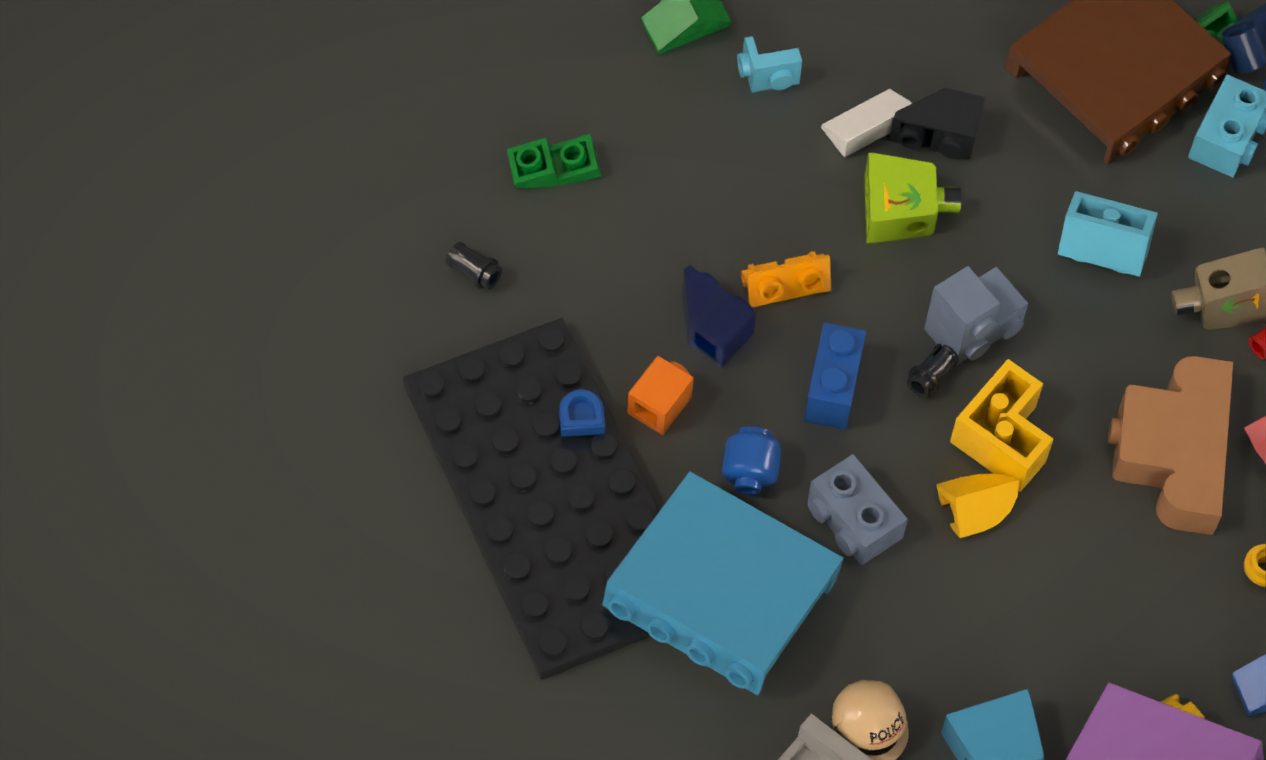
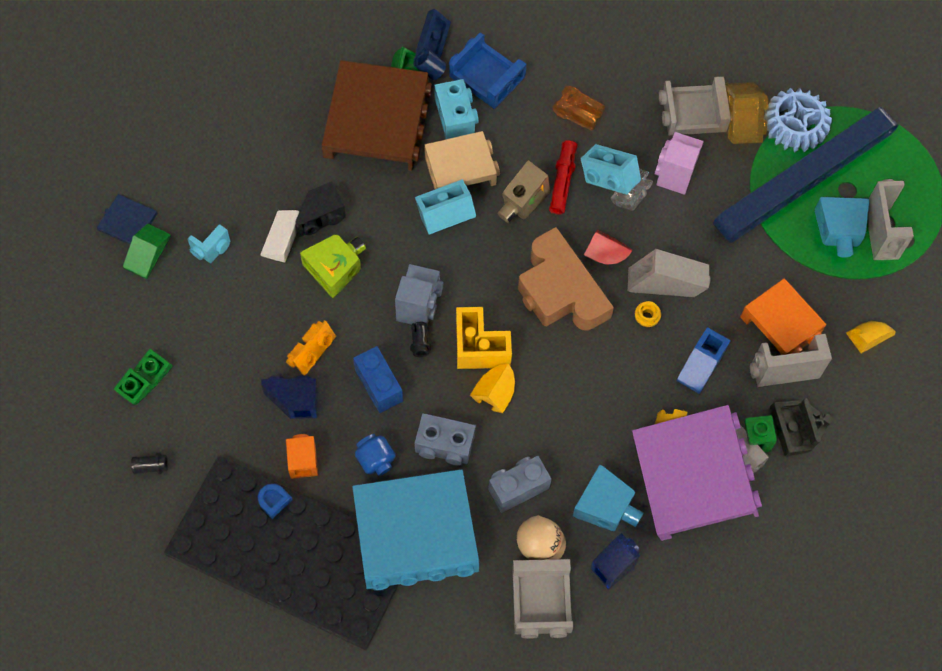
camera: 40 degrees left, 5 degrees up
(903, 634) = (519, 483): none -> sand blue brick
(1184, 192) = (461, 158): none -> tan panel

